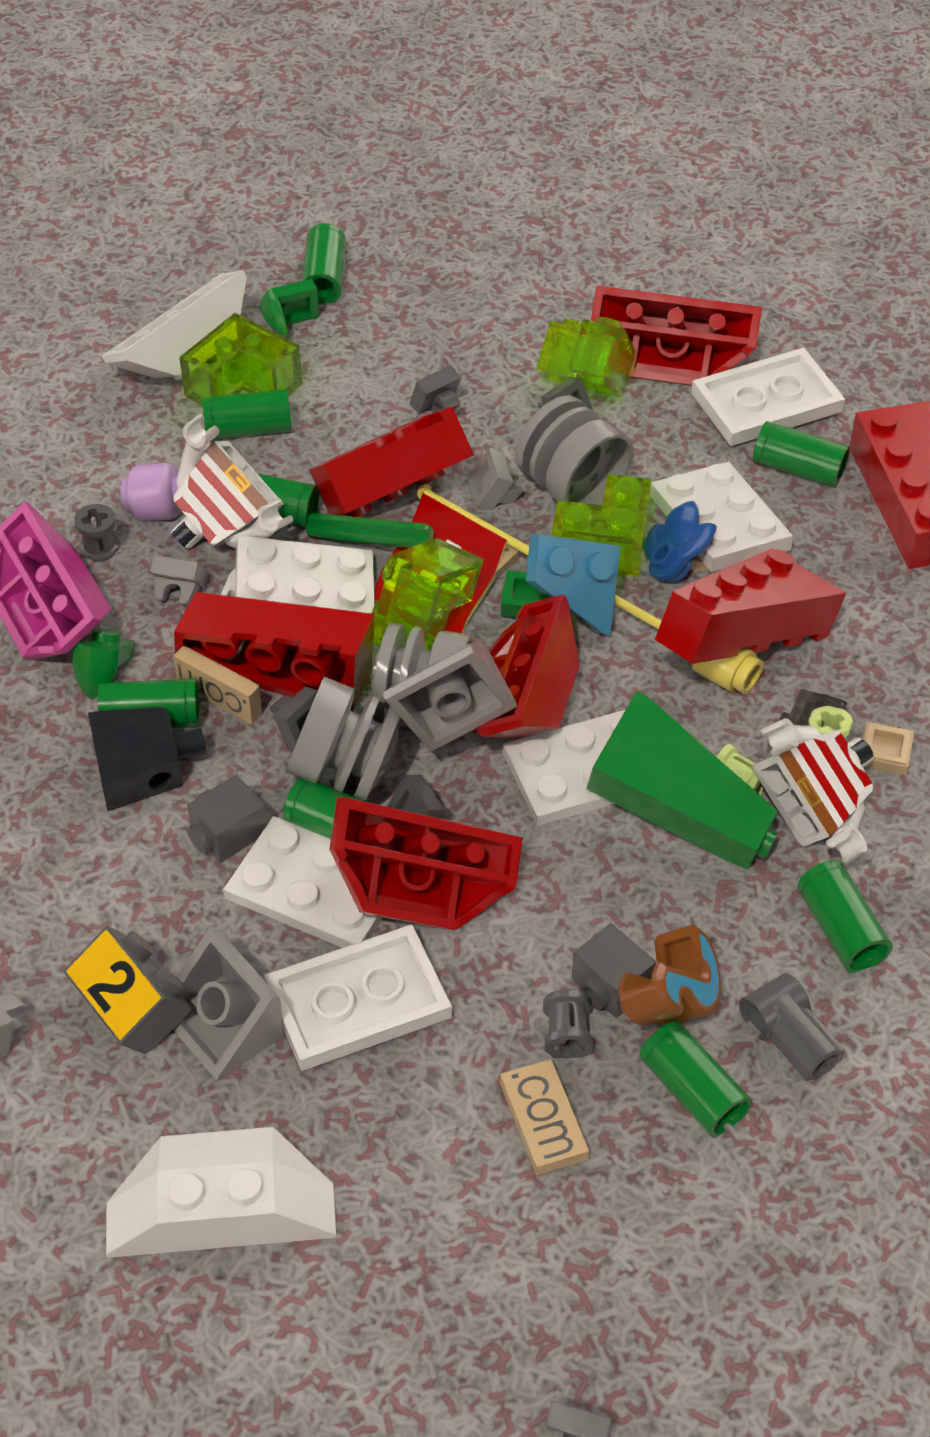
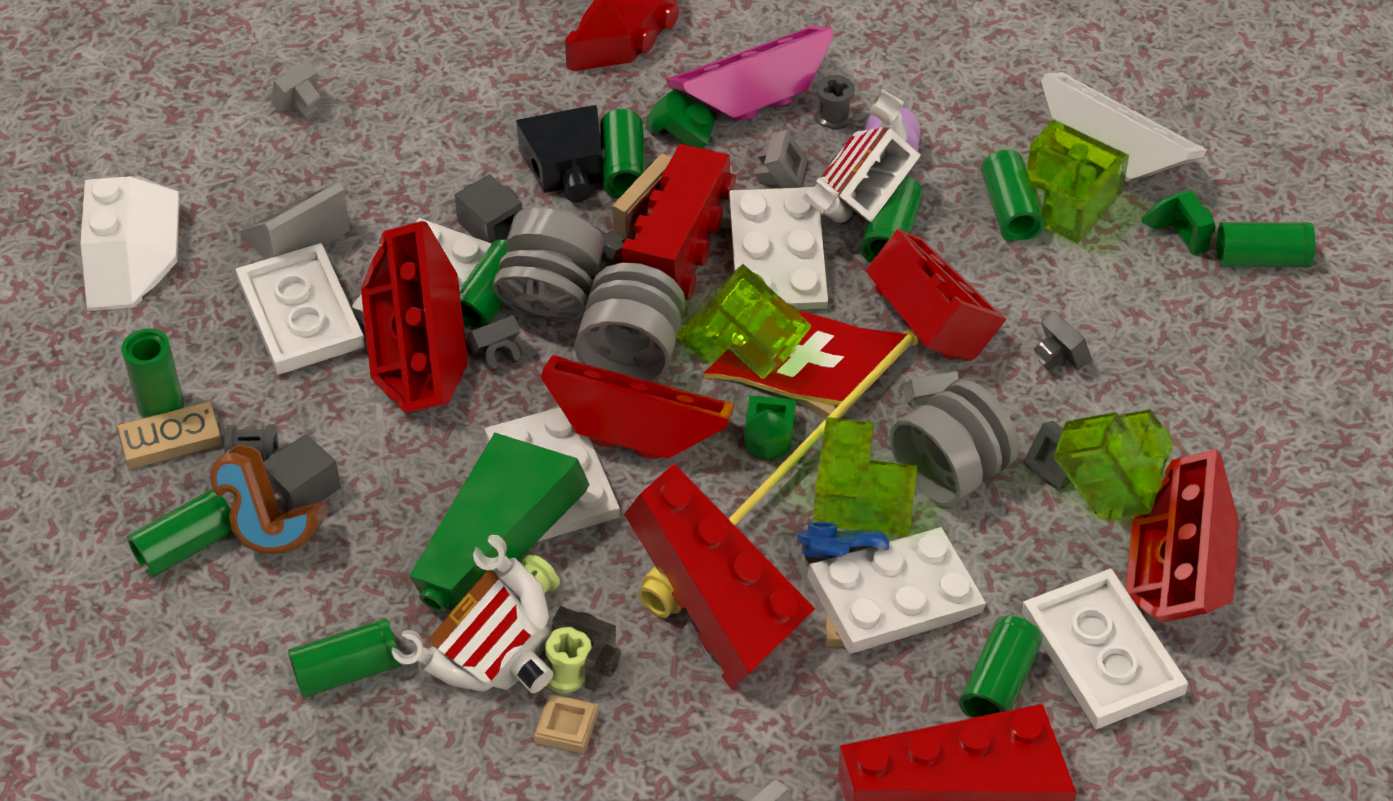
camera: 90 degrees right, 0 degrees up
(128, 989) = (311, 159): brick -> none
(368, 530) = (846, 296): green axle -> none
(451, 695) = (573, 309): light grey slope -> none
(490, 1110) = (152, 372): none -> green pin
(579, 571) = (760, 434): dark azure wing -> none
(785, 1017) = (239, 602): dark grey piece -> none

